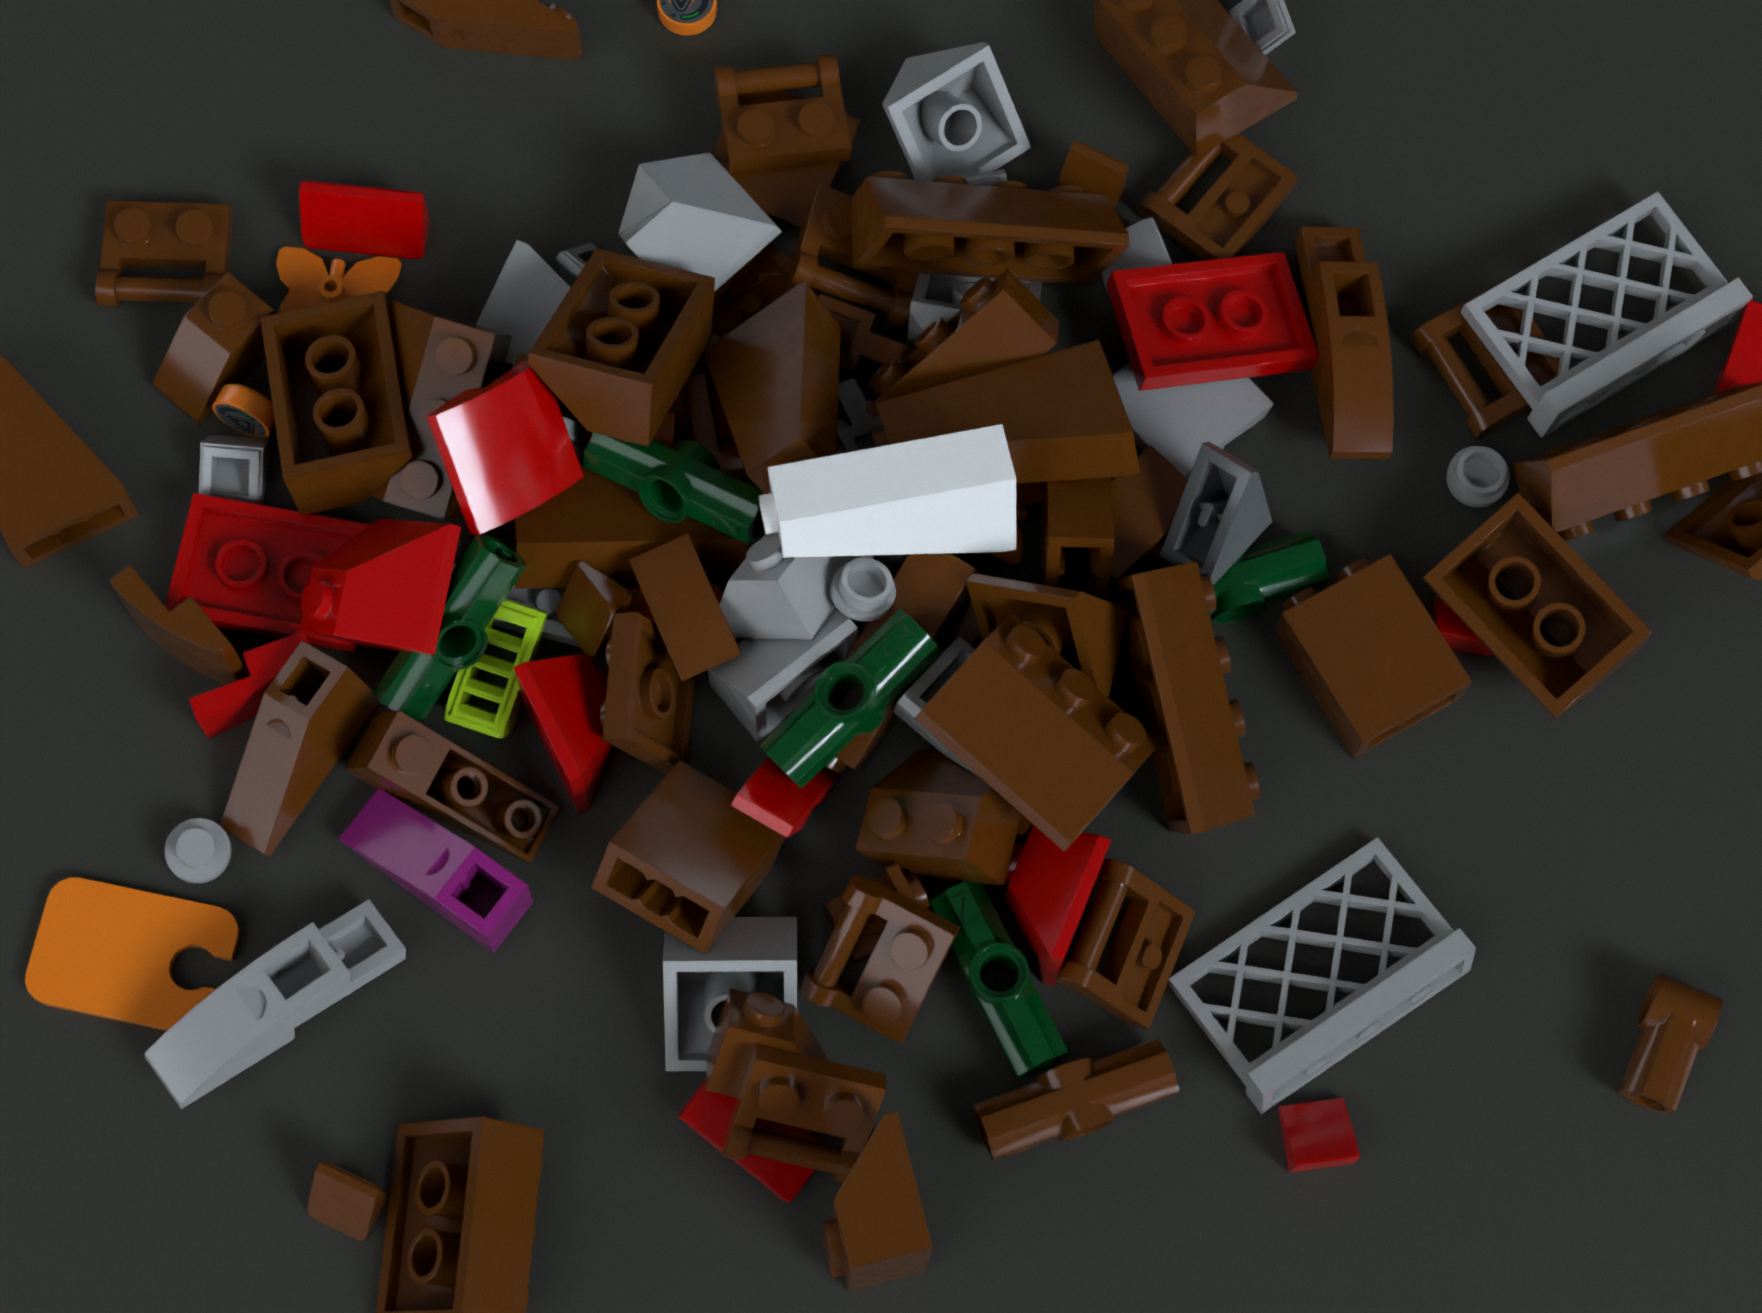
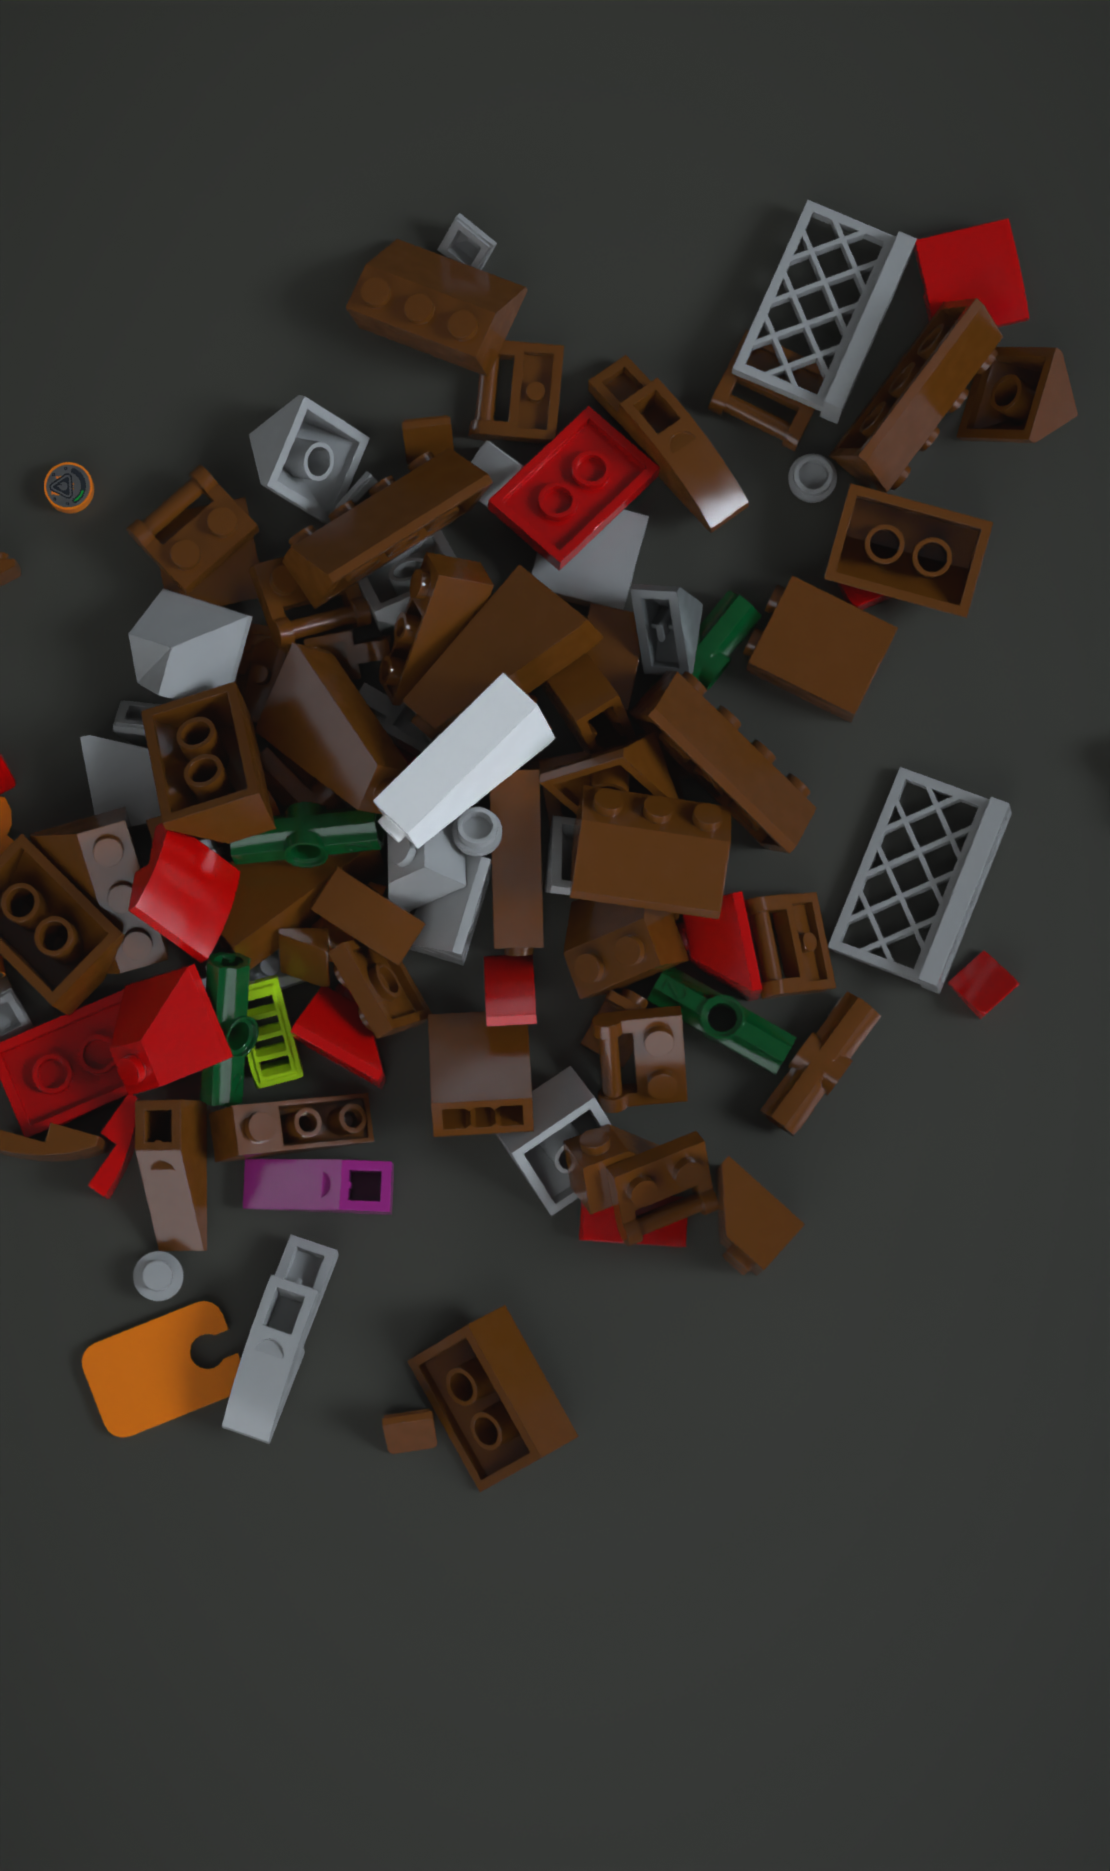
camera: 30 degrees left, 10 degrees up
(879, 666) = (508, 940): dark green piece -> none

